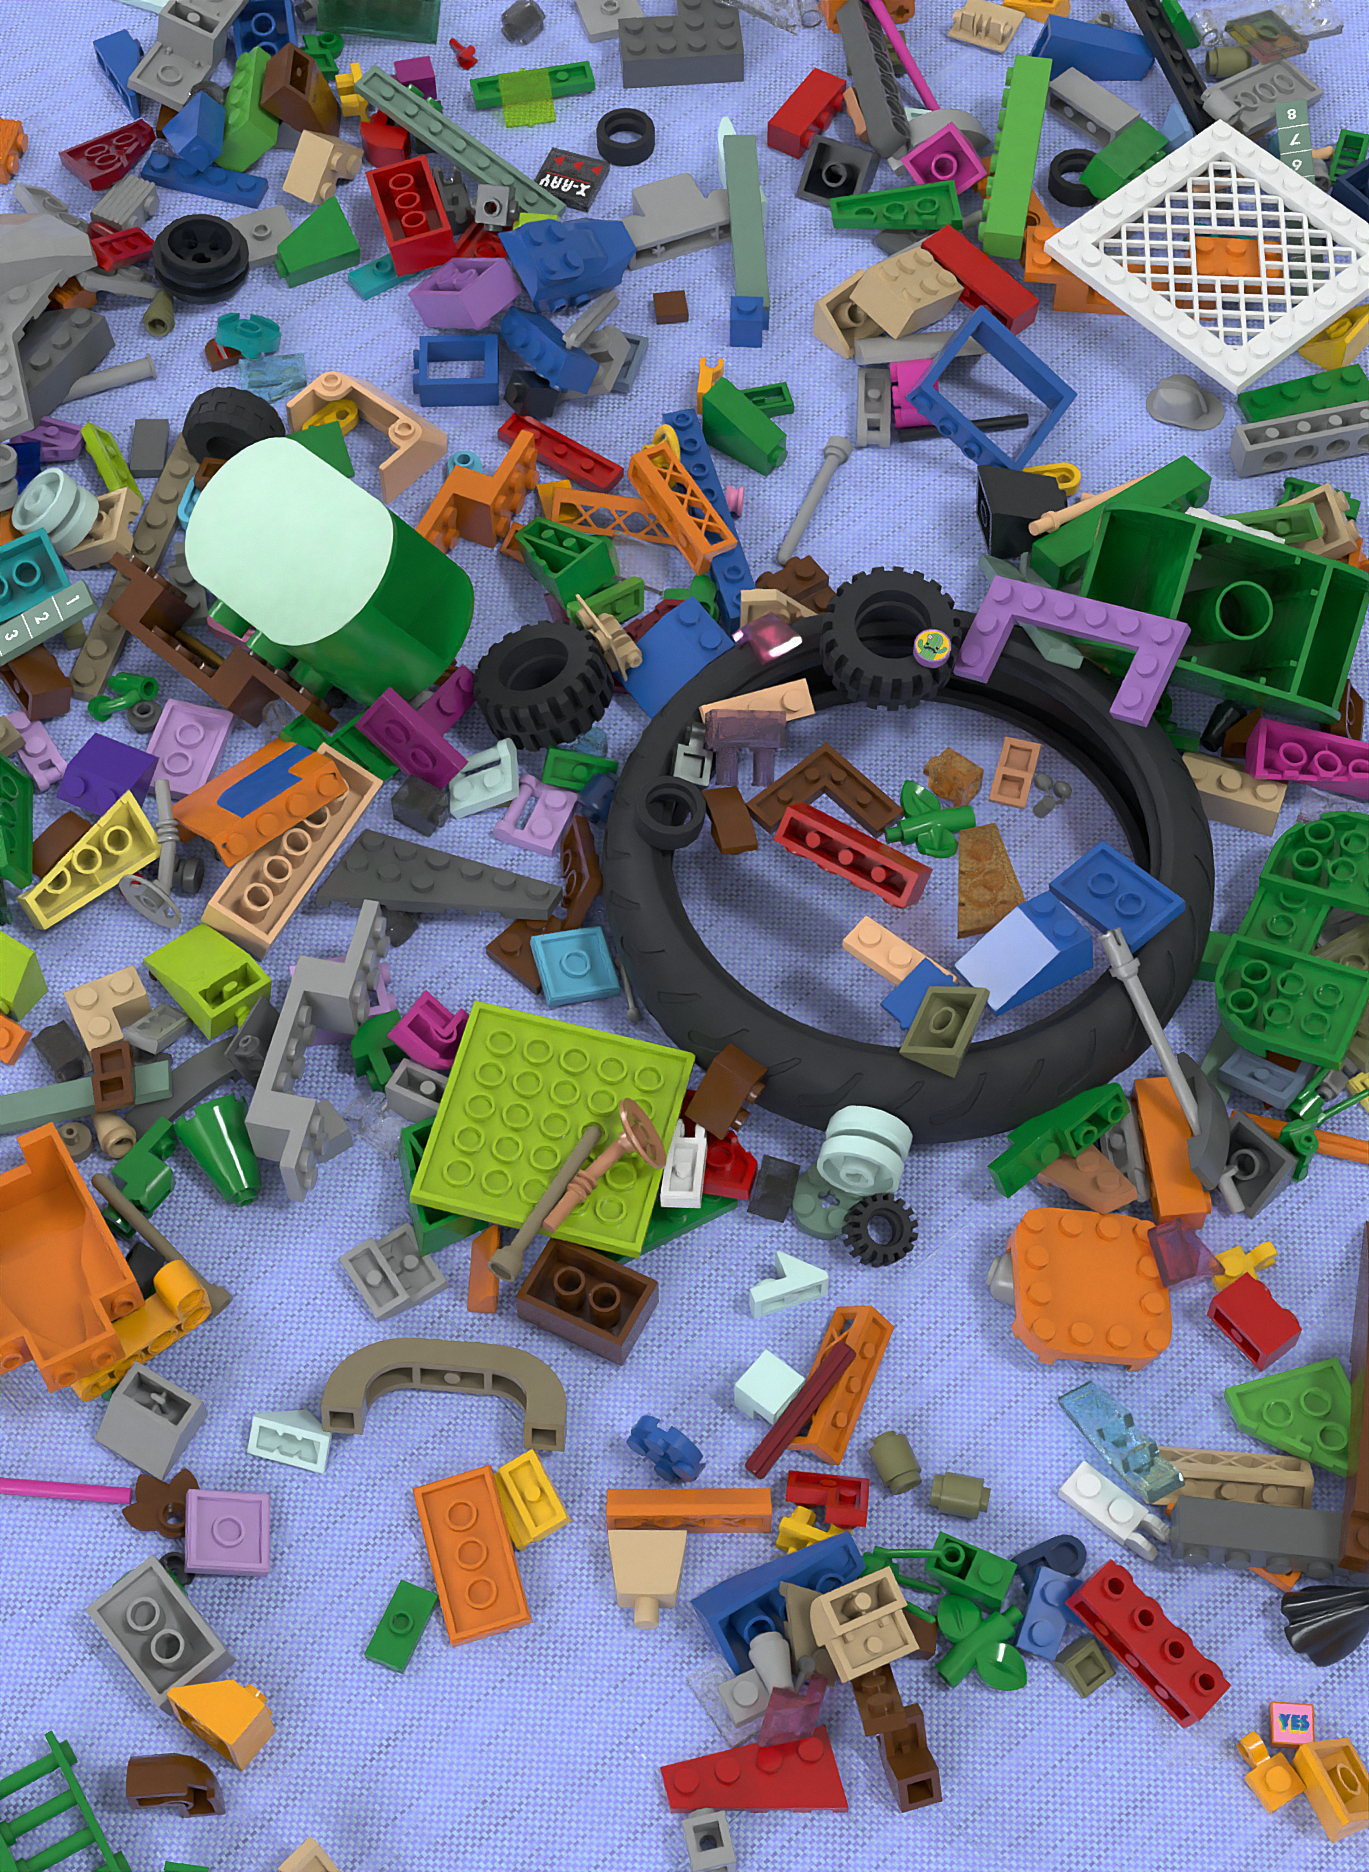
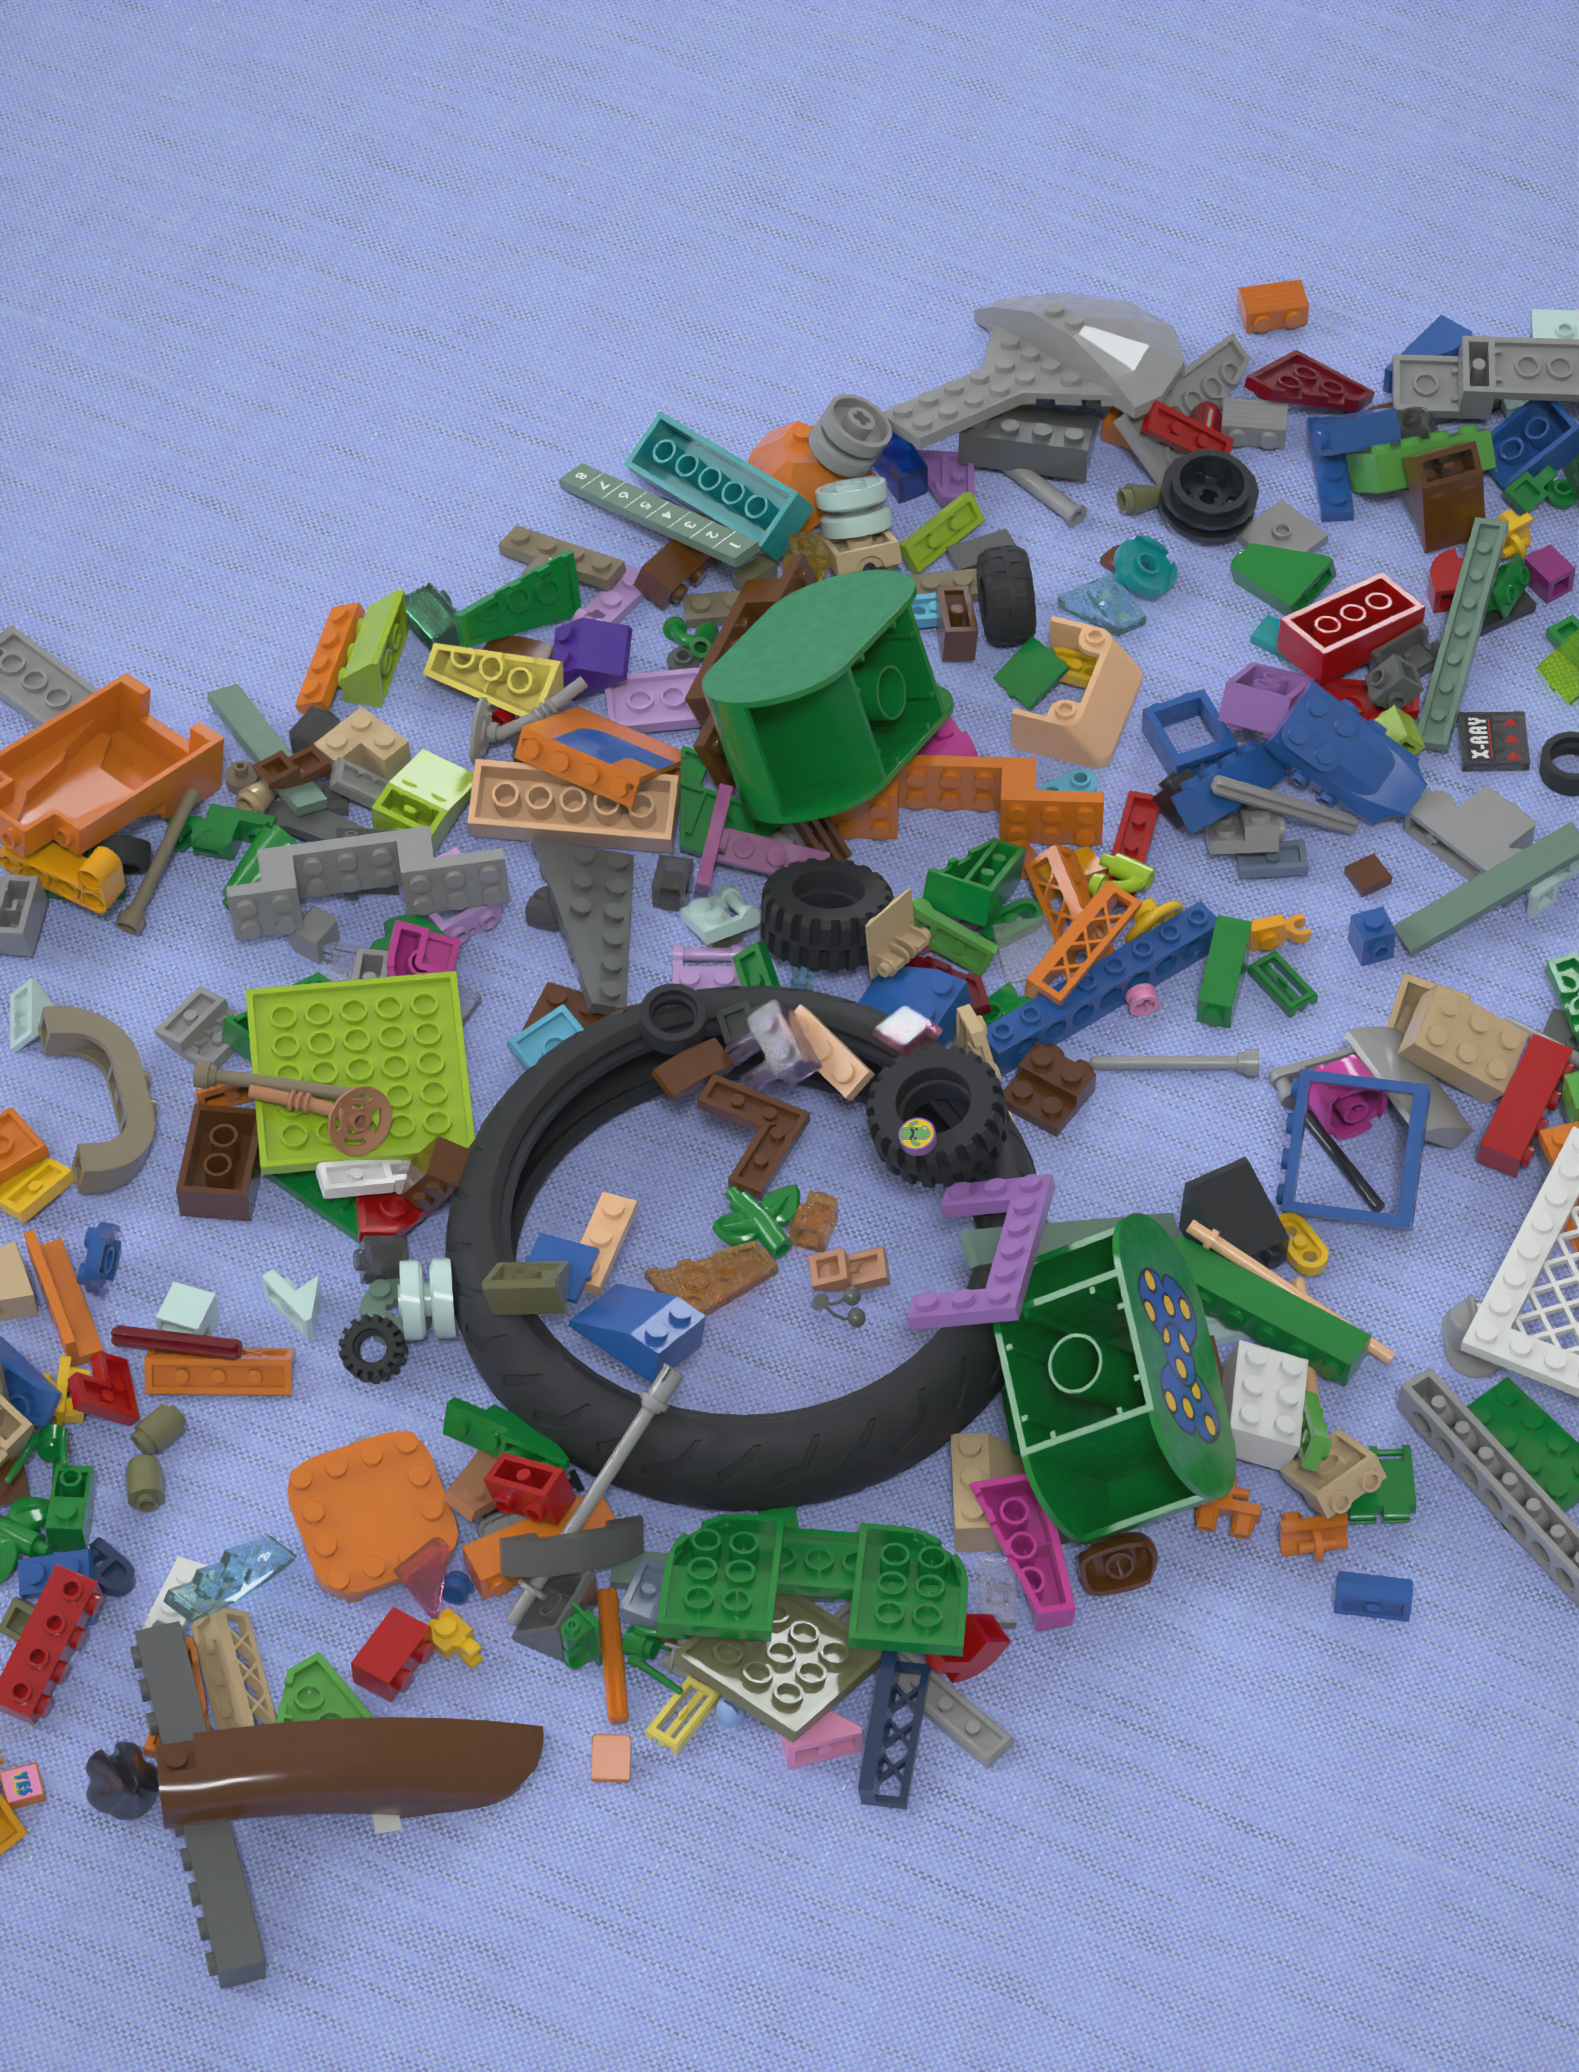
camera: 70 degrees right, 5 degrees down
(93, 566) = (813, 548): none -> clear yellow brick
(319, 164) = (1385, 536): tan brick -> none
(594, 456) = (1132, 873): none -> lime plant
(853, 855) = (689, 1166): red brick -> none
(1117, 893) = (734, 1379): blue plate -> none
(1136, 1128) = (529, 1489): none -> red brick

